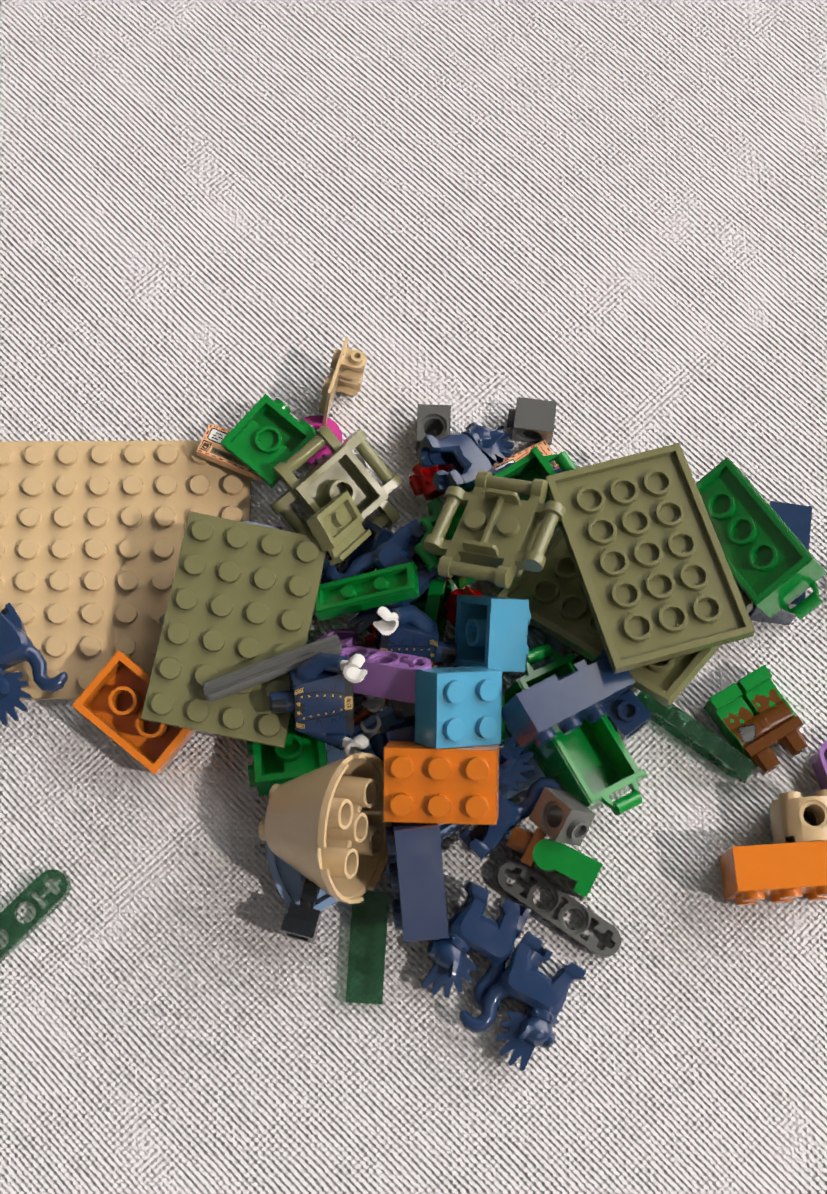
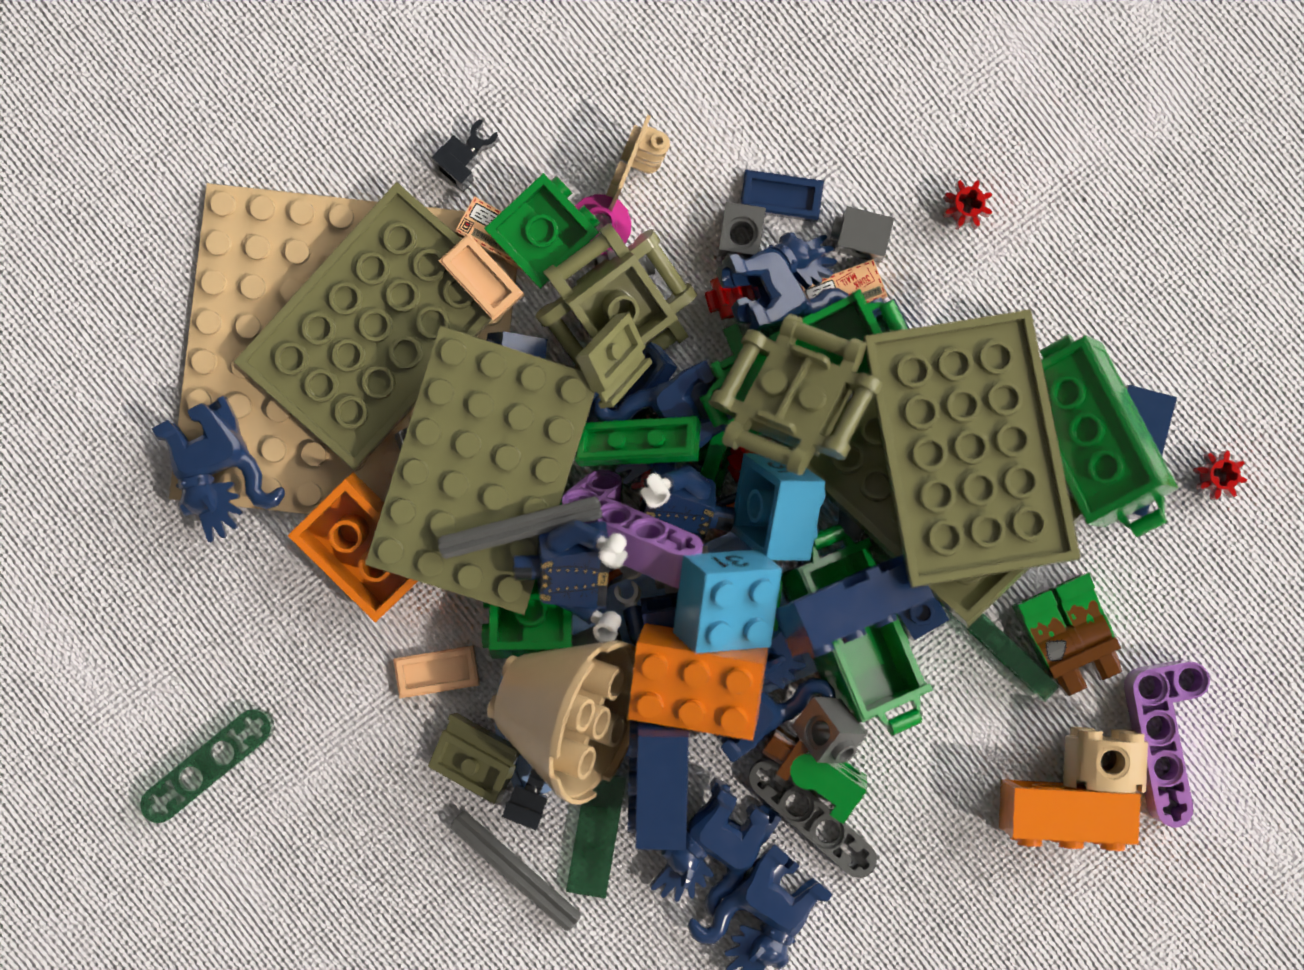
camera: 15 degrees right, 15 degrees up
(123, 536) = (364, 327): none -> olive plate
(194, 399) = (458, 159): none -> black piece
(211, 819) = (436, 671): none -> light nougat tile
(221, 482) = (481, 277): none -> light nougat tile
(252, 888) = (475, 758): none -> olive plate
(298, 989) = (515, 870): none -> dark grey axle
(466, 400) = (783, 195): none -> dark blue tile
(614, 380) = (978, 203): none -> red gear

